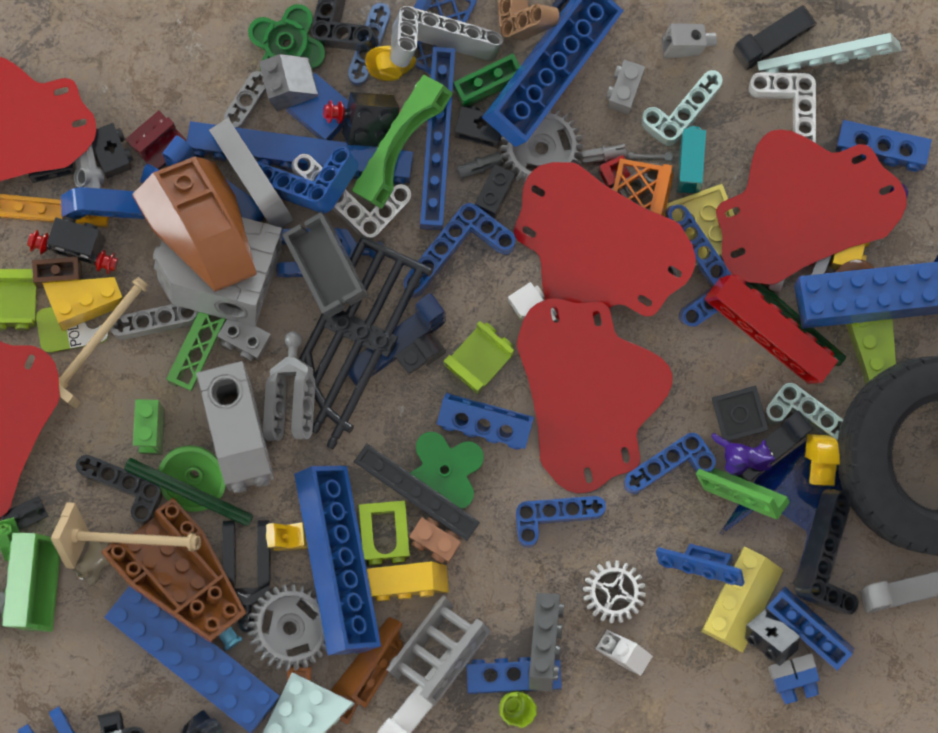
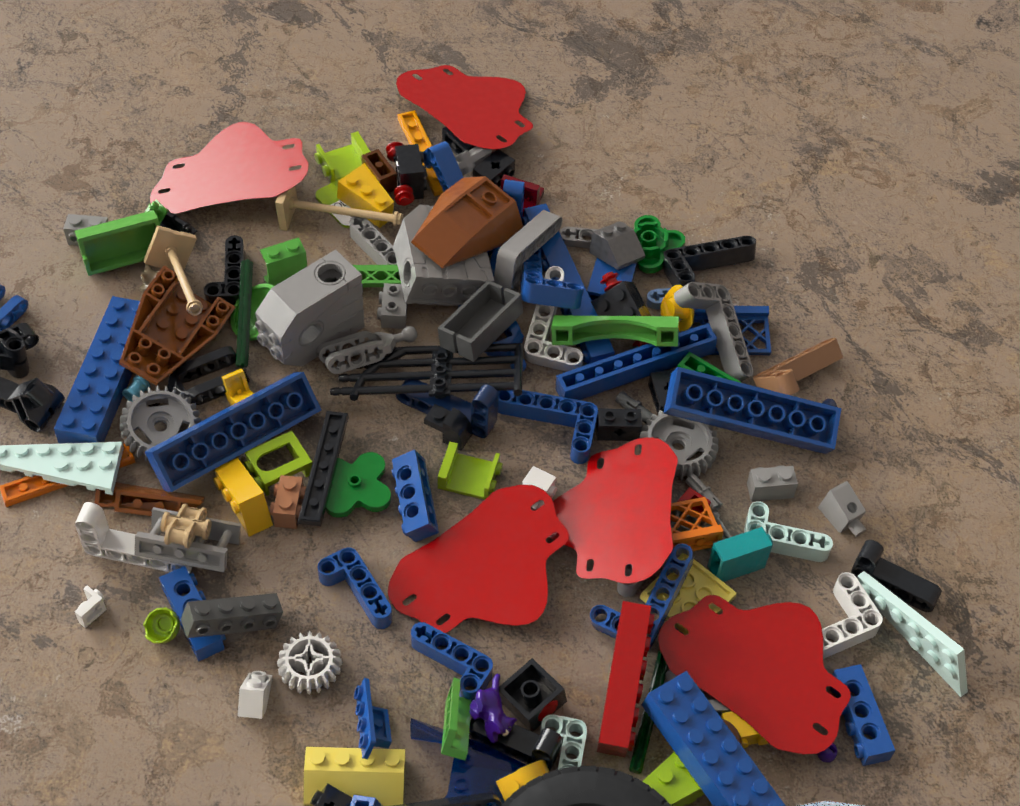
camera: 60 degrees right, 25 degrees down
(436, 647) = (185, 526): none -> tan axle

